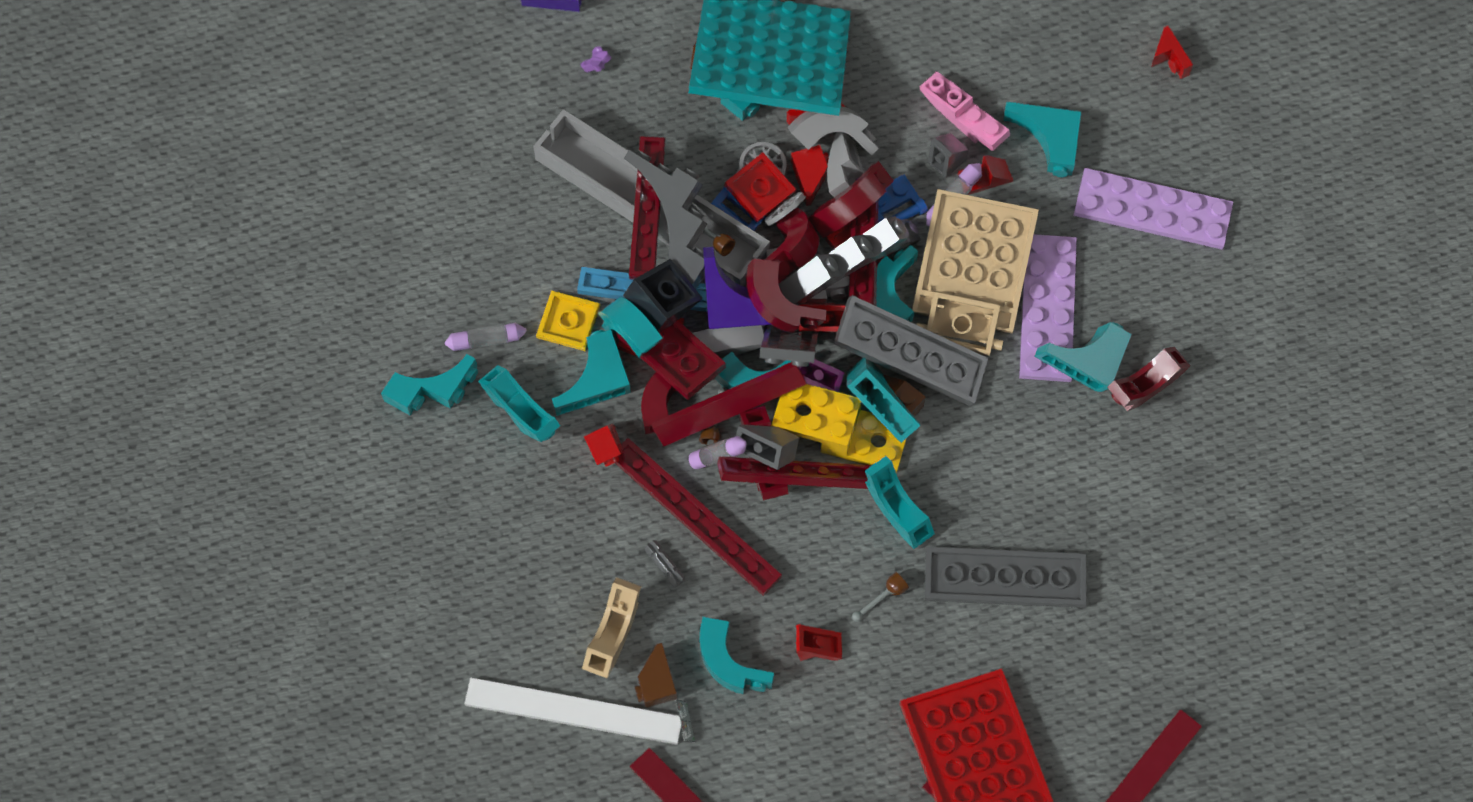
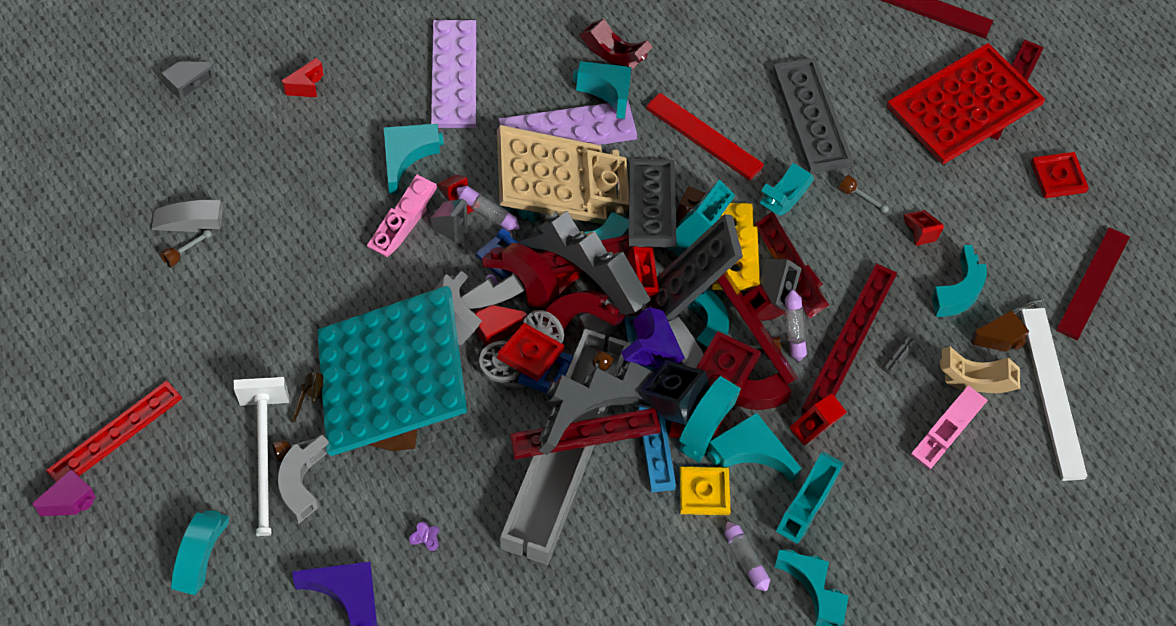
camera: 110 degrees left, 10 degrees down
(561, 579) = (948, 427): none -> bright pink slope
(770, 302) = (650, 303): dark red arch -> none
(1003, 449) = (705, 136): none -> red tile

